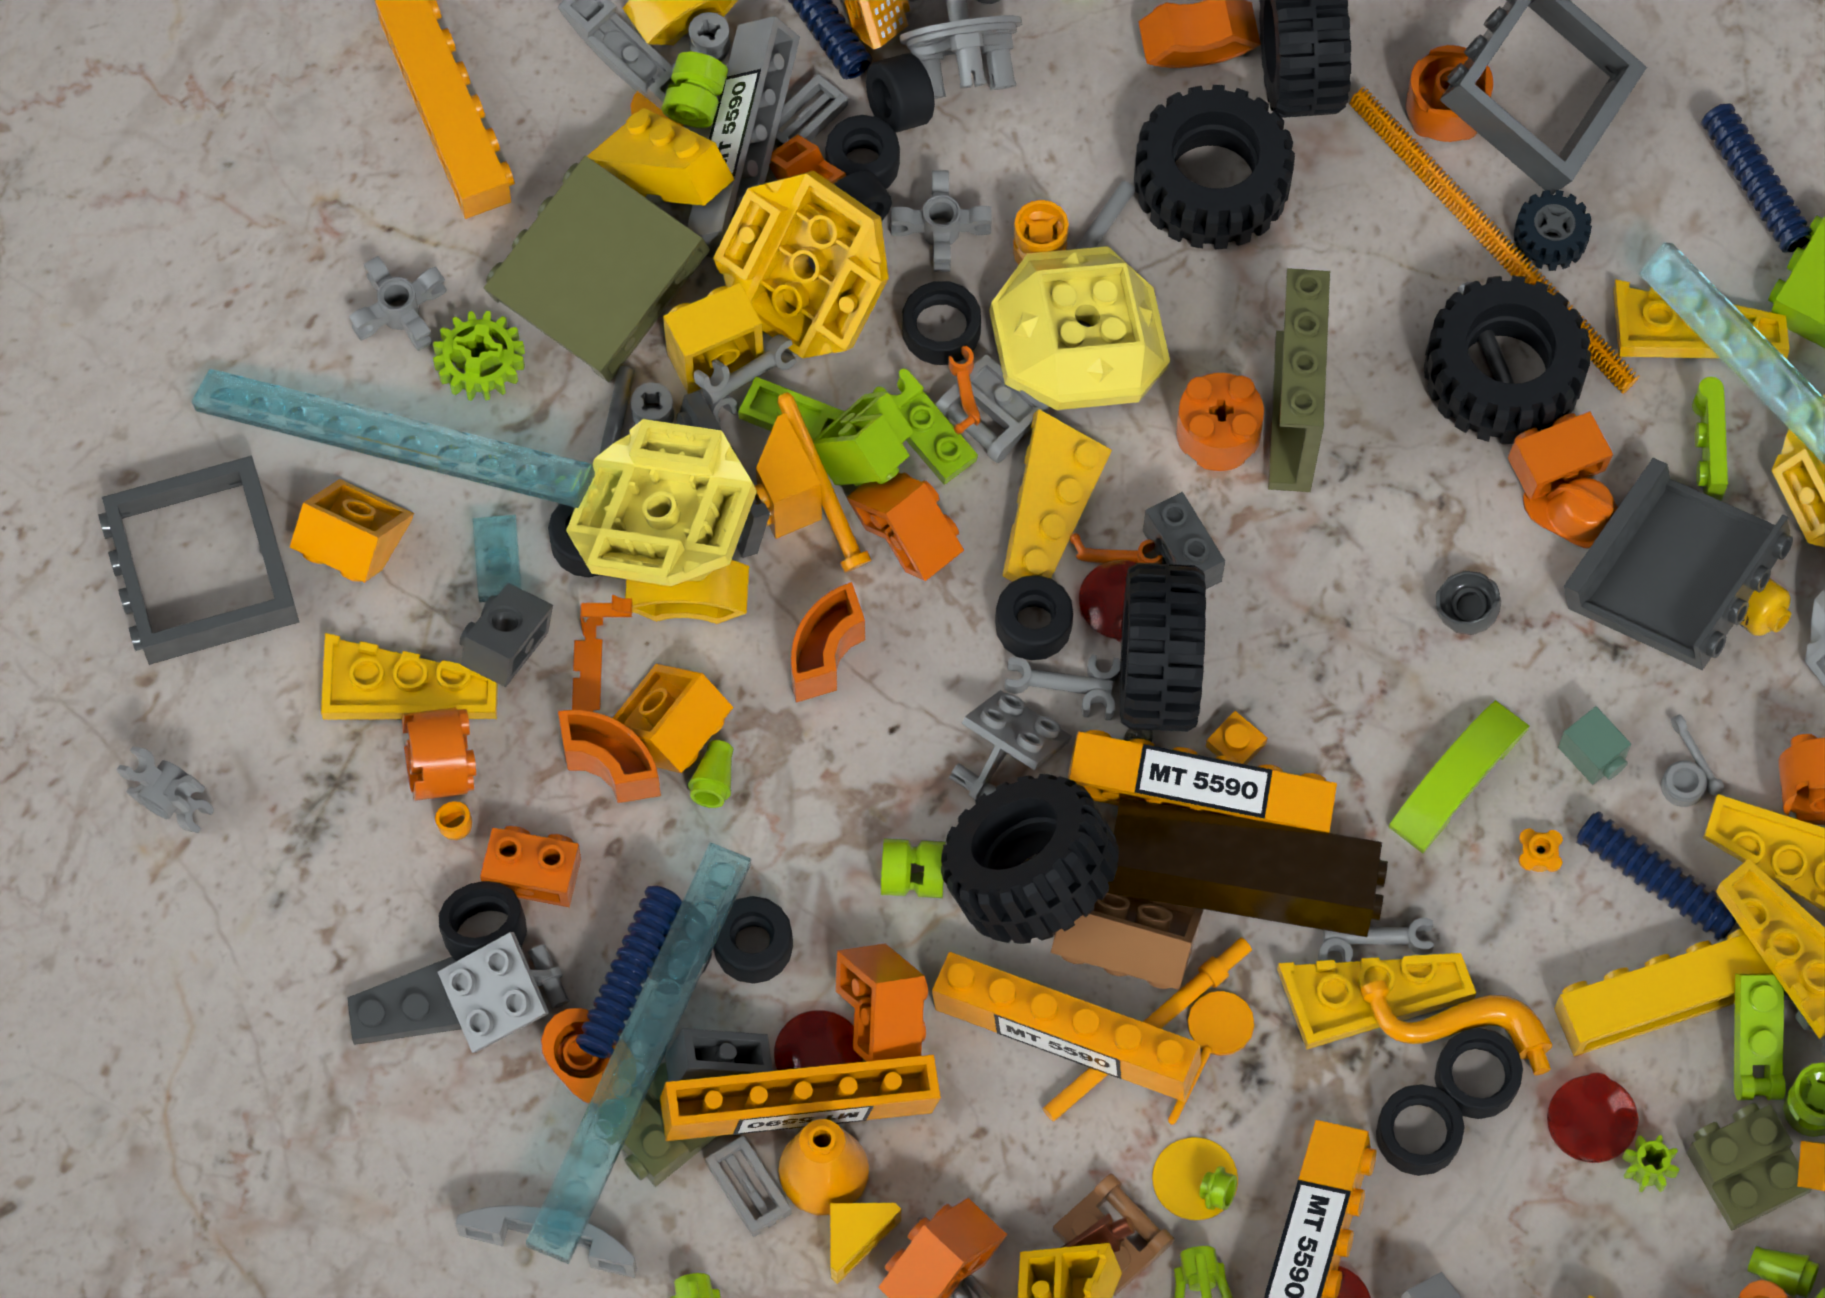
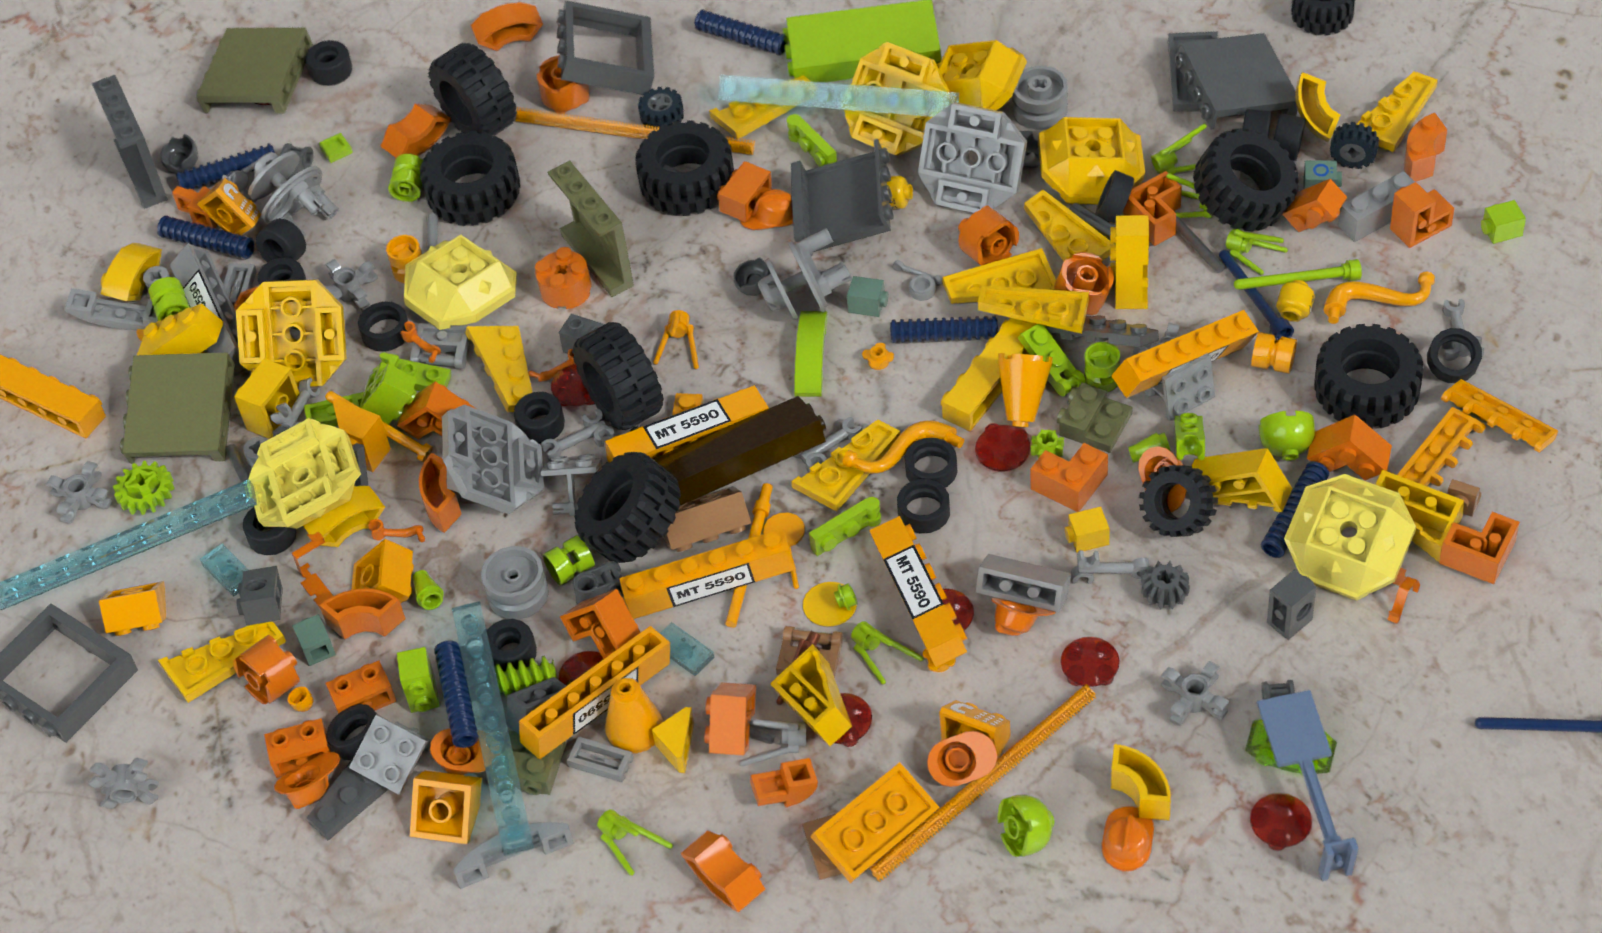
camera: 30 degrees left, 15 degrees down
(381, 949) = (309, 781): none -> orange piece
(402, 889) = (296, 745): none -> orange brick
(516, 1110) = (444, 806): none -> light orange slope
(527, 745) = (314, 640): none -> sand green brick
(603, 910) = (418, 680): none -> lime brick
(739, 1003) = (524, 676): none -> lime piece
(741, 658) = (379, 532): none -> orange piece
(829, 829) = (514, 582): none -> light grey wheel
(931, 933) = (597, 581): none -> dark grey piece
(947, 657) = (490, 459): none -> light grey piece
(962, 1108) = (687, 650): none -> clear light blue plate
(1130, 105) = (405, 178): none -> lime wheel
(1300, 1084) = (845, 525): none -> lime plate
(1311, 606) = (677, 327): none -> light orange plant
(1534, 667) = (819, 282): none -> light grey piece
(1635, 1243) = (1070, 481): none -> orange brick
(1686, 1051) = (1023, 385): none -> light orange cone

